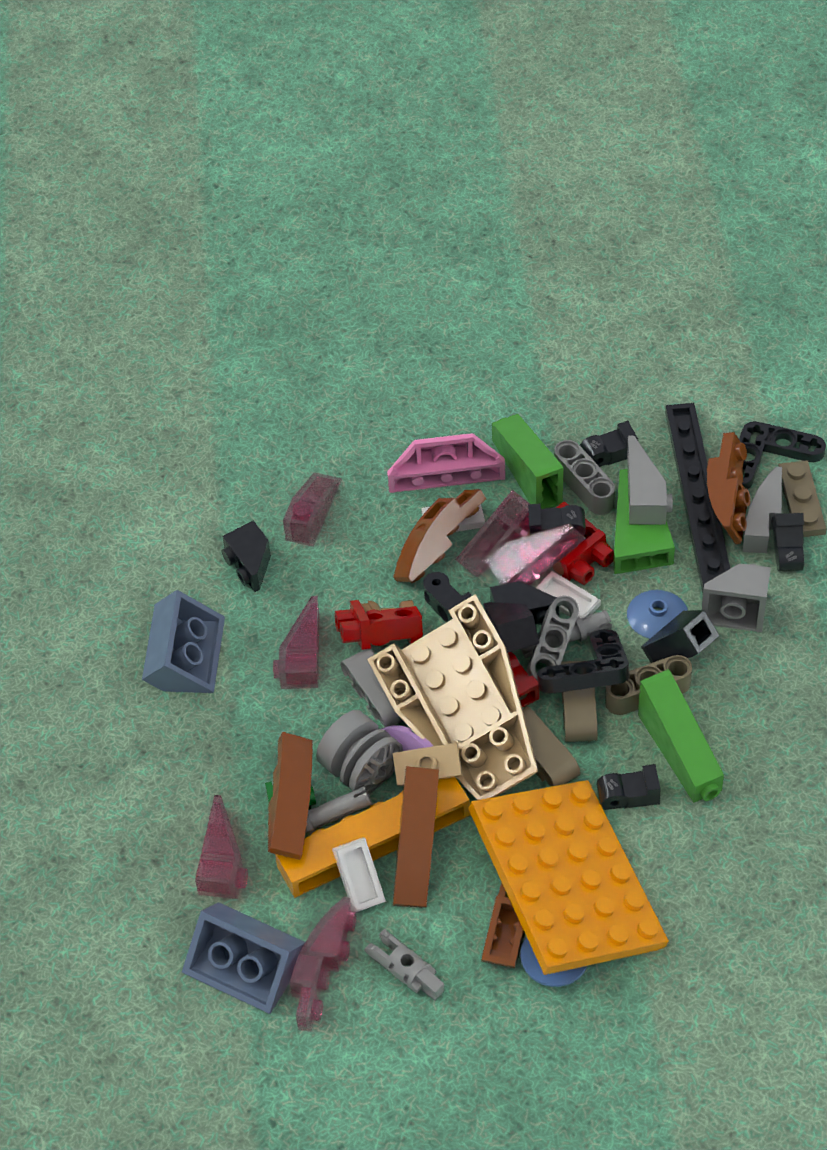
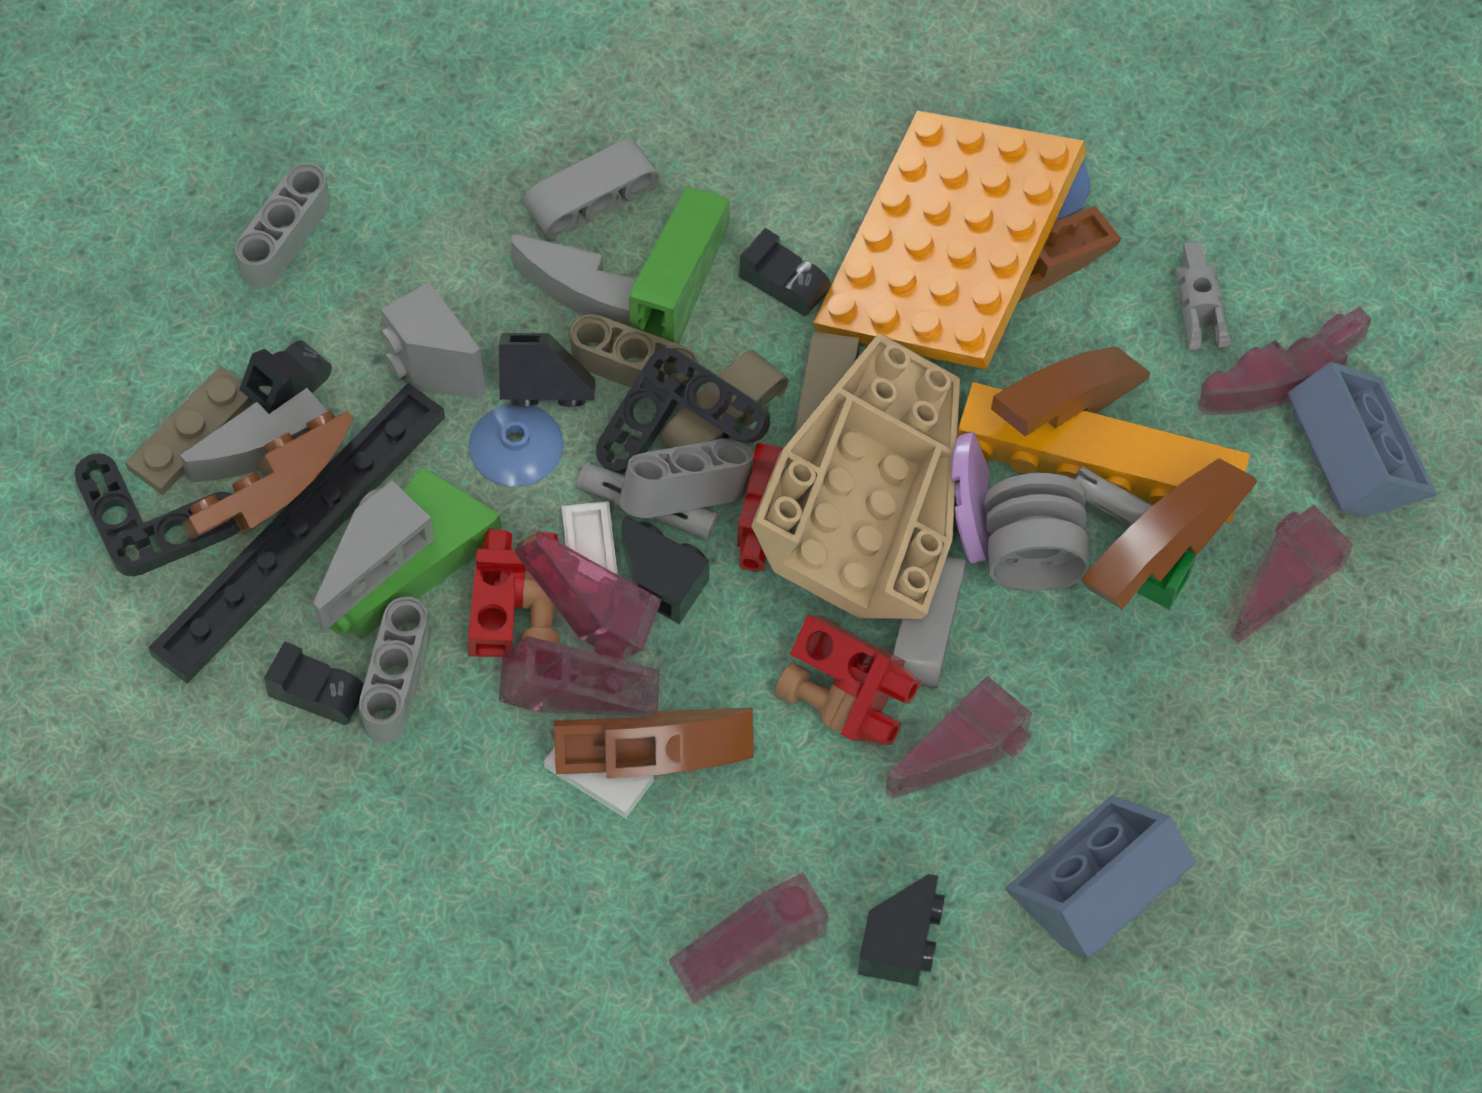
camera: 140 degrees left, 10 degrees up
(358, 874) = (1166, 412): white tile -> none
(440, 757) = (984, 439): tan plate -> none
(441, 594) = (731, 671): black leg -> none
(445, 463) = (536, 844): bright pink wedge -> none
(513, 623) = (723, 515): black slope -> none
(529, 461) = (436, 742): bright green slope -> none
(550, 518) = (523, 599): black leg -> none
(726, 695) = (573, 278): none -> light grey slope
(774, 749) = (590, 187): none -> light grey beam

